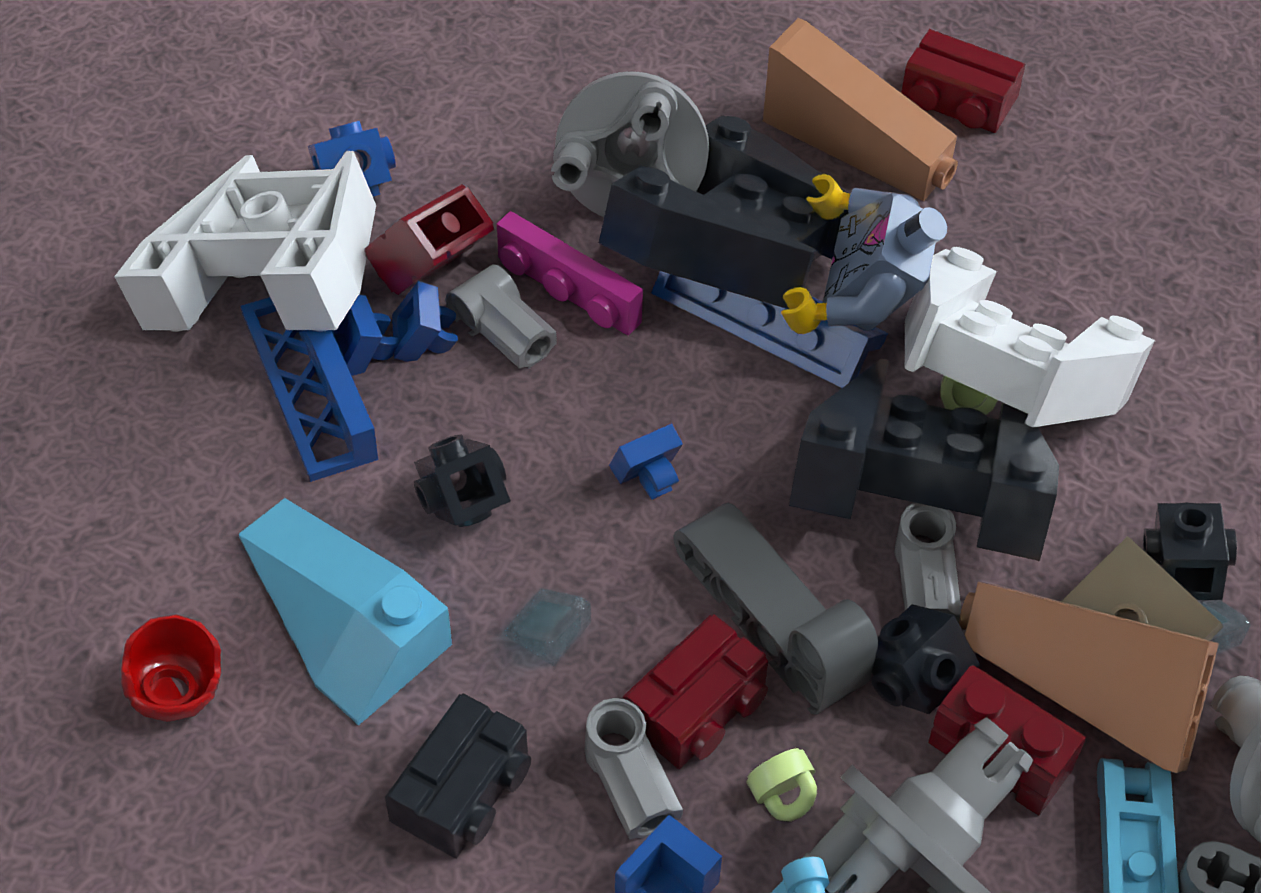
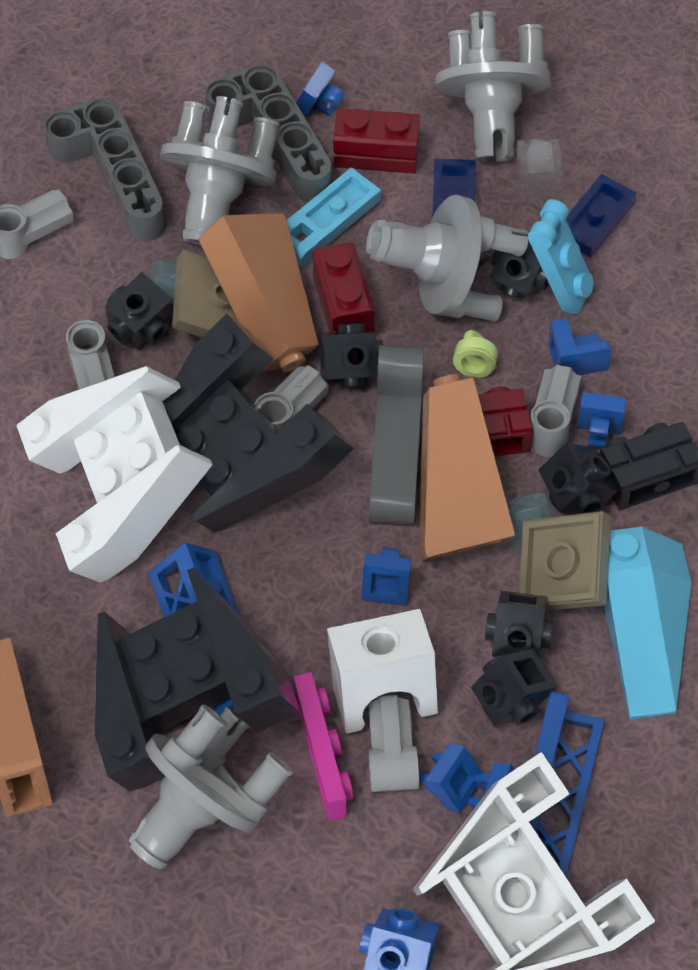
camera: 140 degrees left, 5 degrees up
(417, 415) = (504, 688): none -> black brick
(429, 239) = (404, 815): dark red brick -> none
(464, 570) = (566, 560): none -> dark tan plate
(525, 682) = (578, 479): none -> black brick
(554, 331) = (382, 658): none -> white piece
(564, 796) = (601, 416): none -> blue tile
(659, 578) = (459, 475): none -> nougat slope
(877, 260) = (141, 558): sand blue torso -> none
(1167, 471) = (88, 365): none -> light grey piece

